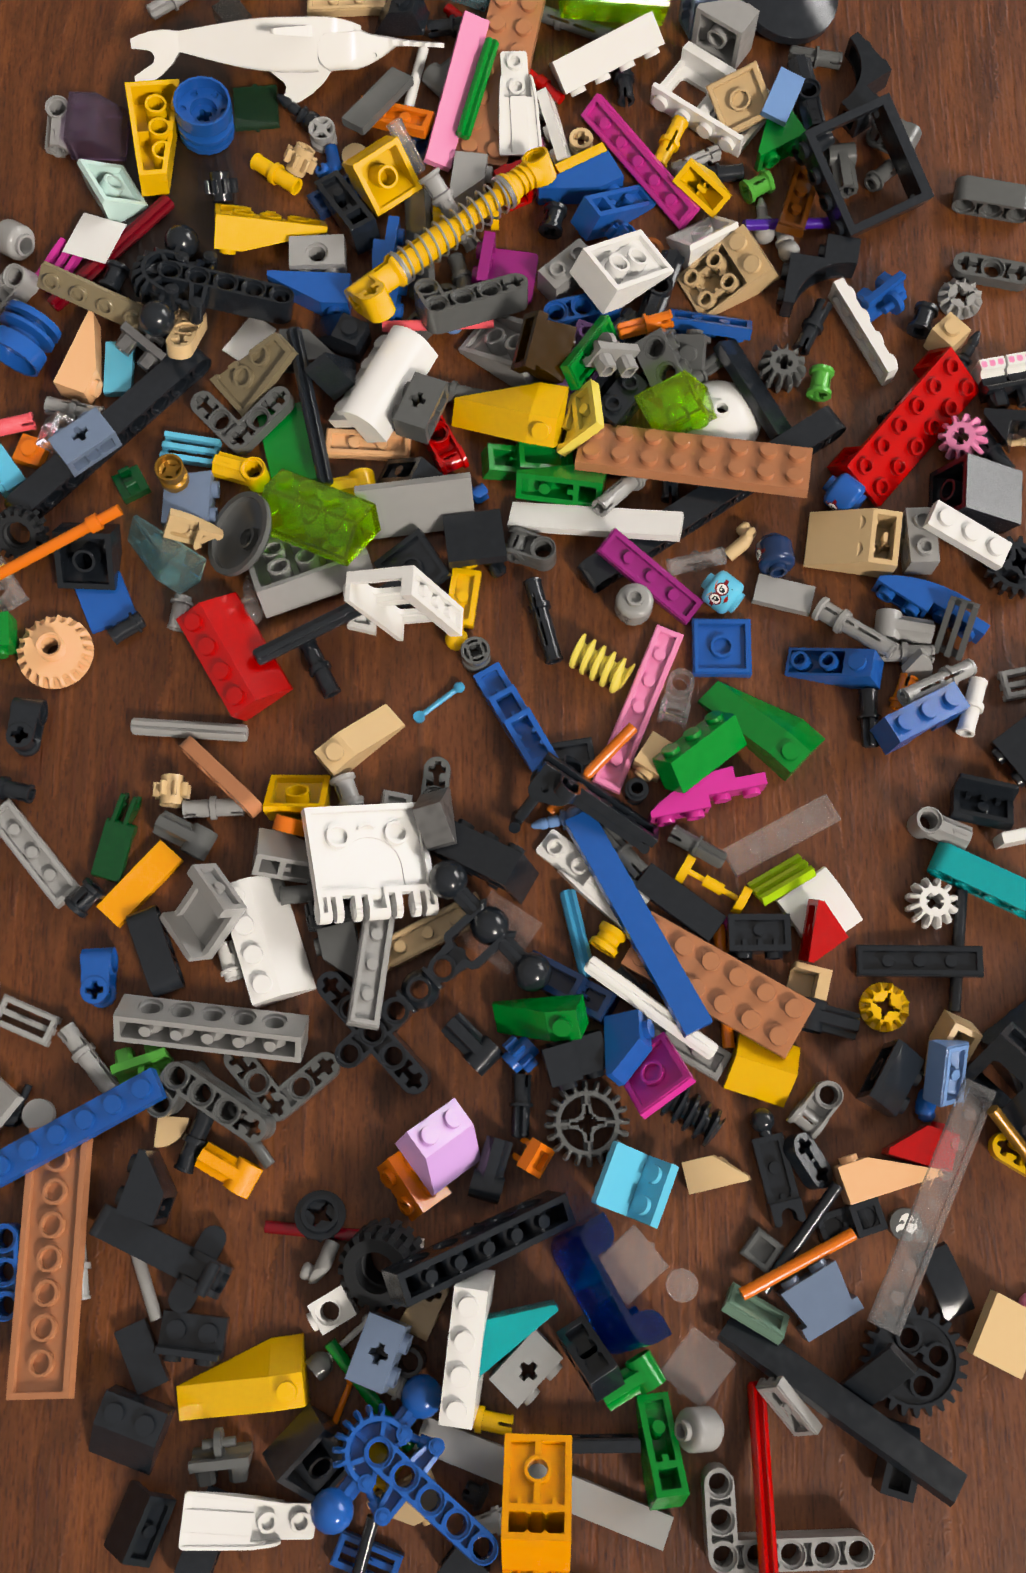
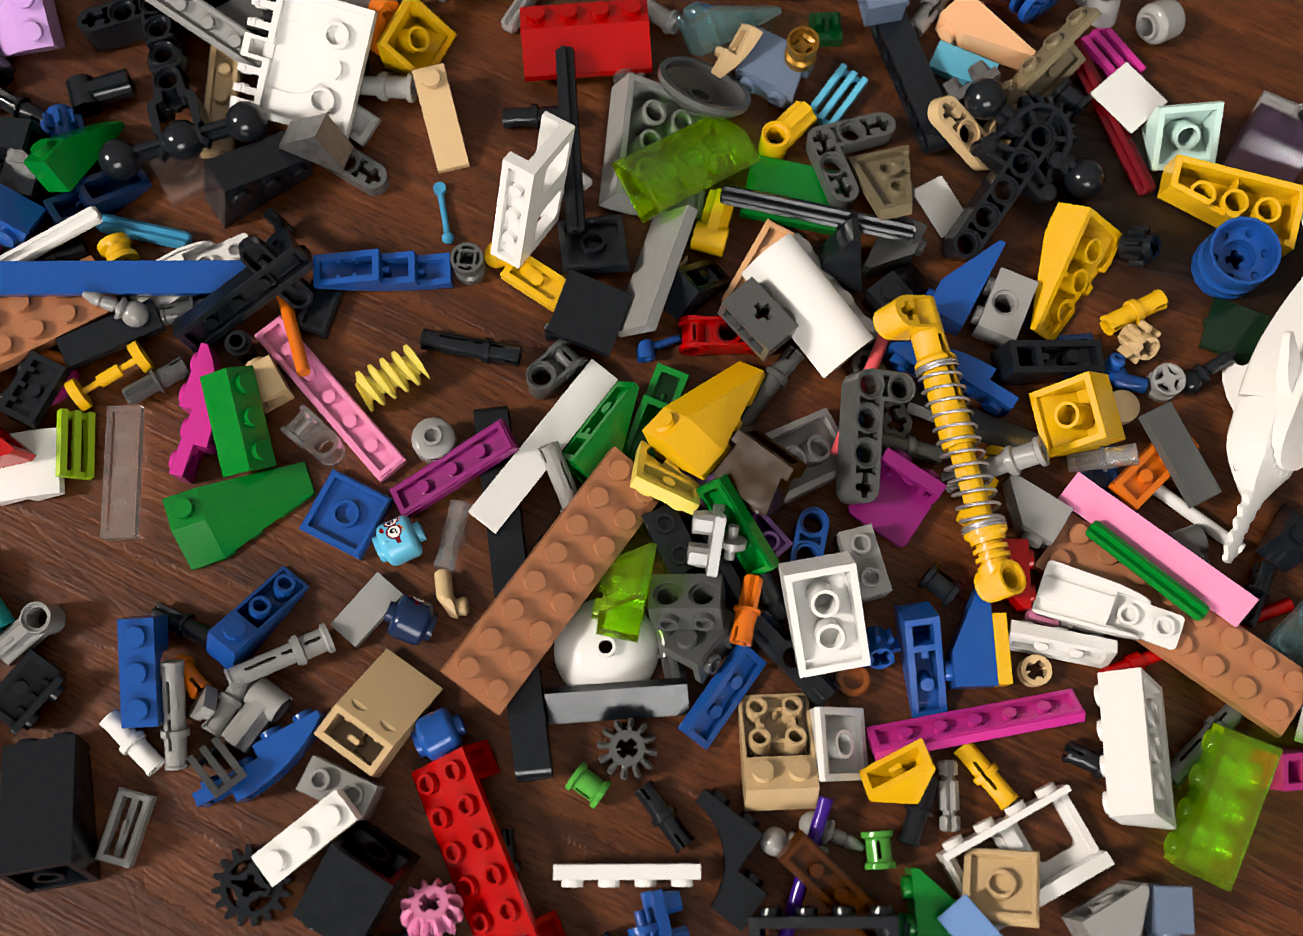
camera: 115 degrees right, 0 degrees up
(655, 891) = (132, 313): none -> light grey bar

